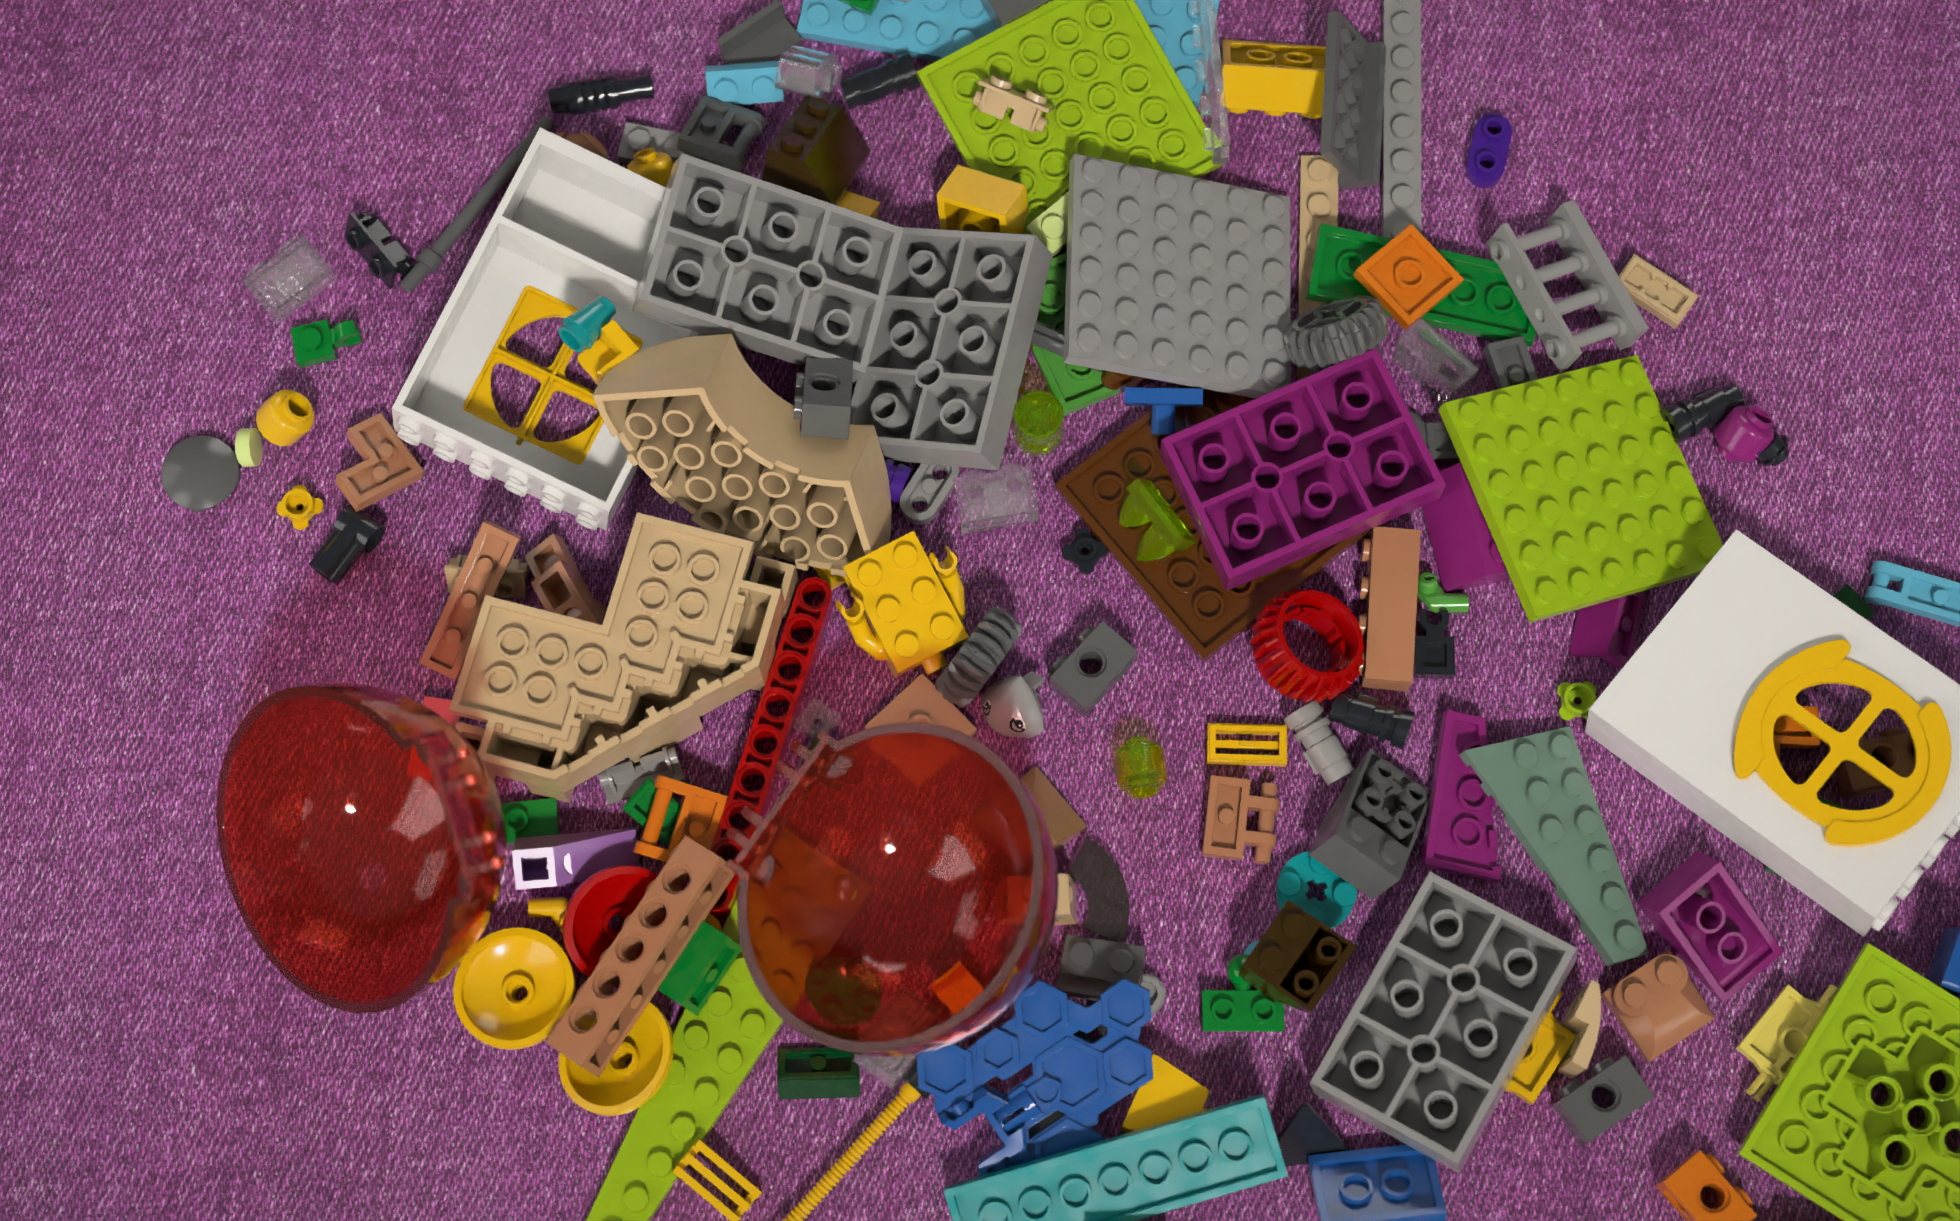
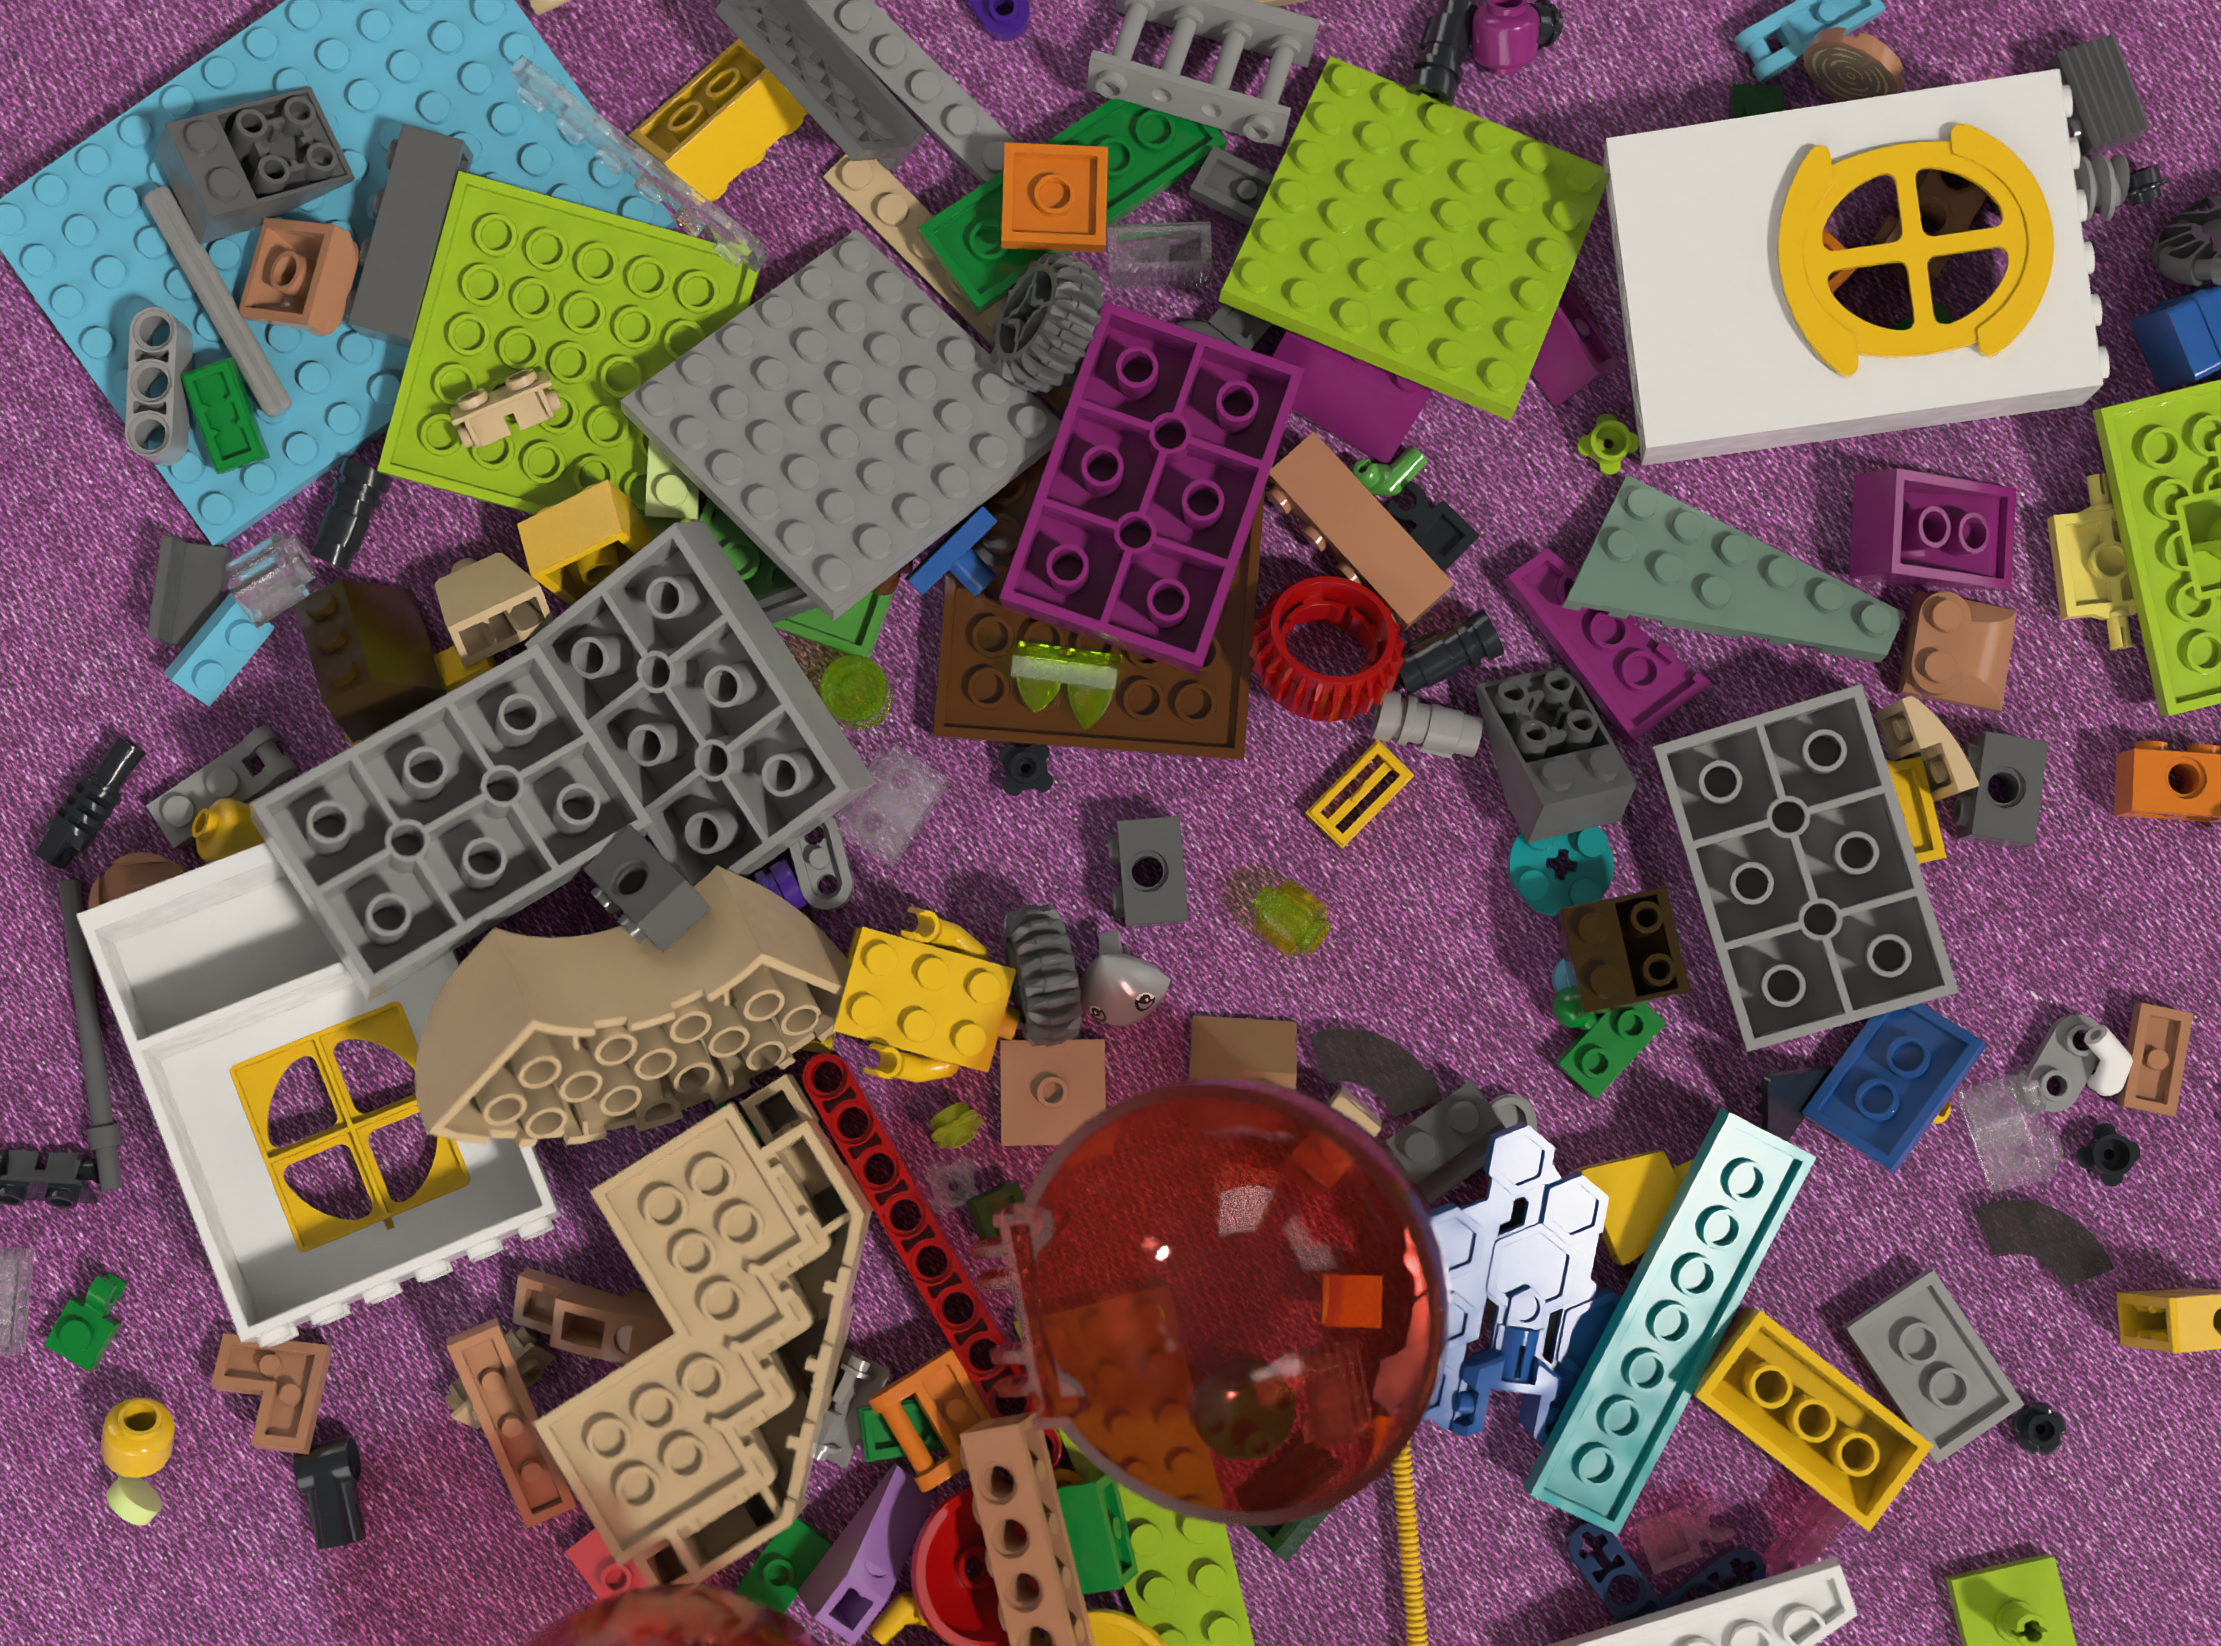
camera: 45 degrees left, 10 degrees up
(200, 473) = (113, 1571): dark grey dish -> none
(295, 497) = (232, 1507): yellow plate -> none
(584, 326) = (339, 1059): teal cone -> none
(607, 351) = (390, 1066): yellow panel -> none
(709, 127) = (235, 730): dark grey plate -> none
(852, 691) = (955, 1126): none -> lime plate
(899, 192) = (490, 606): none -> tan torso
(1227, 818) = (1414, 880): nougat plate -> none
(1922, 631) = (1852, 66): none -> tile

